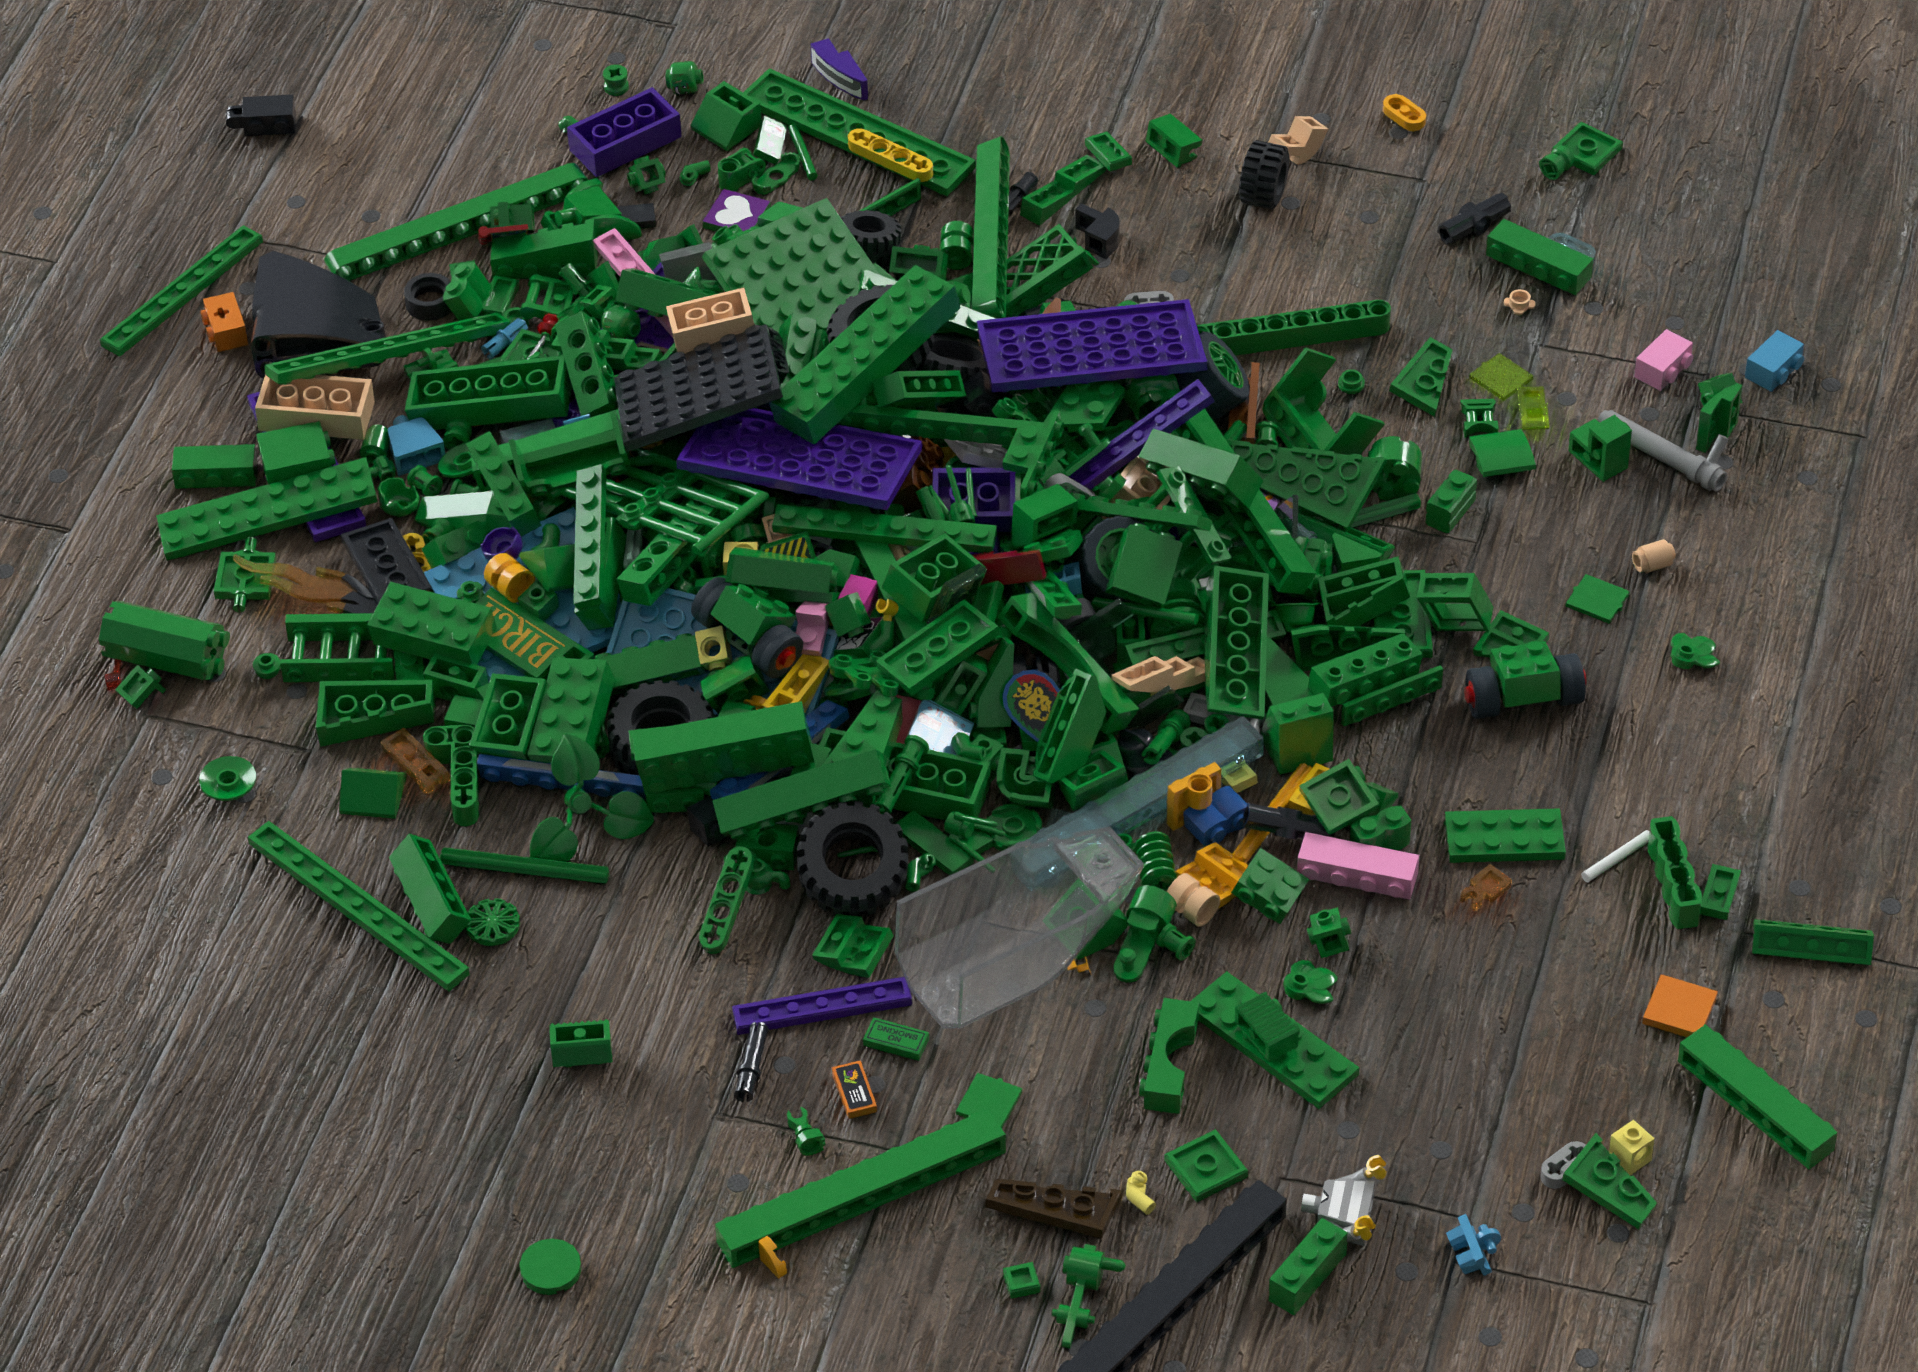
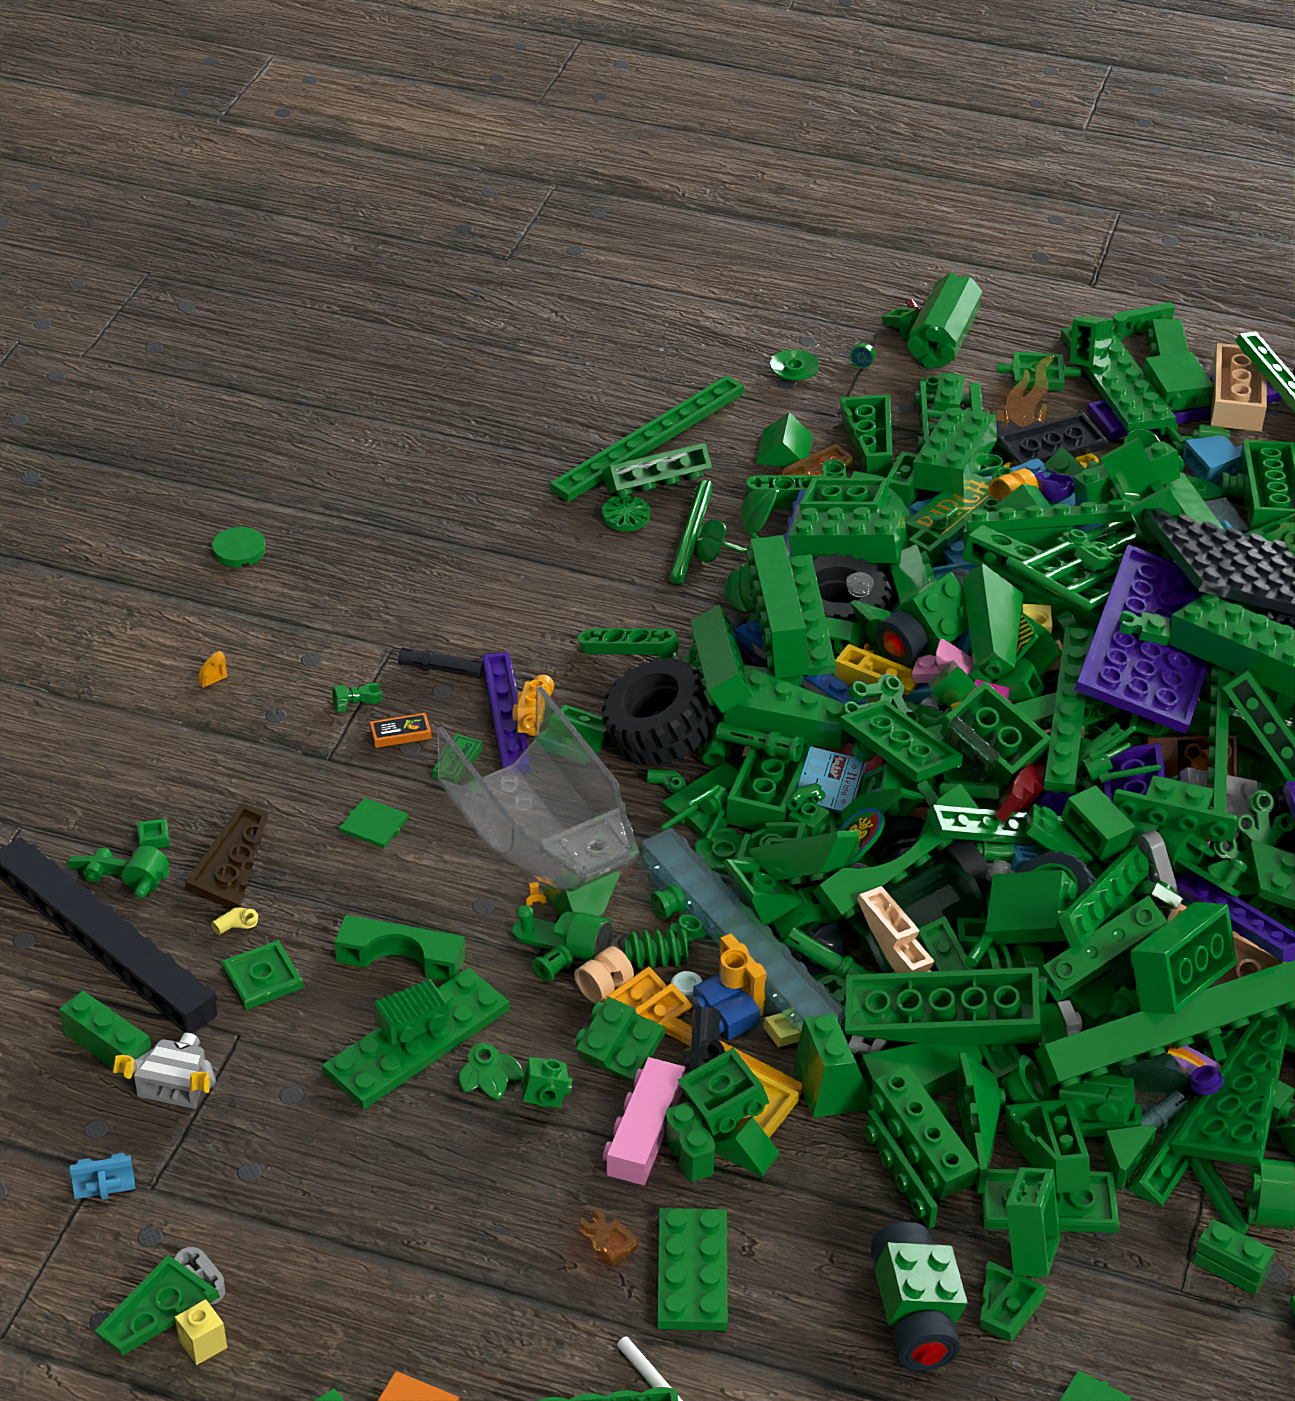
camera: 90 degrees right, 5 degrees down
(158, 486) = (1140, 319): none -> green plate
(209, 720) = (862, 355): none -> tile
(226, 511) = (1089, 339): none -> green slope
(299, 641) = (949, 391): none -> green plate
(549, 644) = (940, 520): none -> green hand
(580, 1043) = (467, 553): green brick -> none
(668, 696) = (860, 584): none -> clear plate
(687, 488) = (1096, 558): none -> green plate
(801, 451) = (1148, 626): none -> green plate
(829, 970) = (525, 710): none -> light orange brick
(862, 1187) = (281, 731): green brick -> none
(1097, 589) = (997, 867): none -> clear plate
(1186, 848) = (685, 981): none -> light aqua tile
(1285, 491) = (1206, 1080): none -> dark purple plate

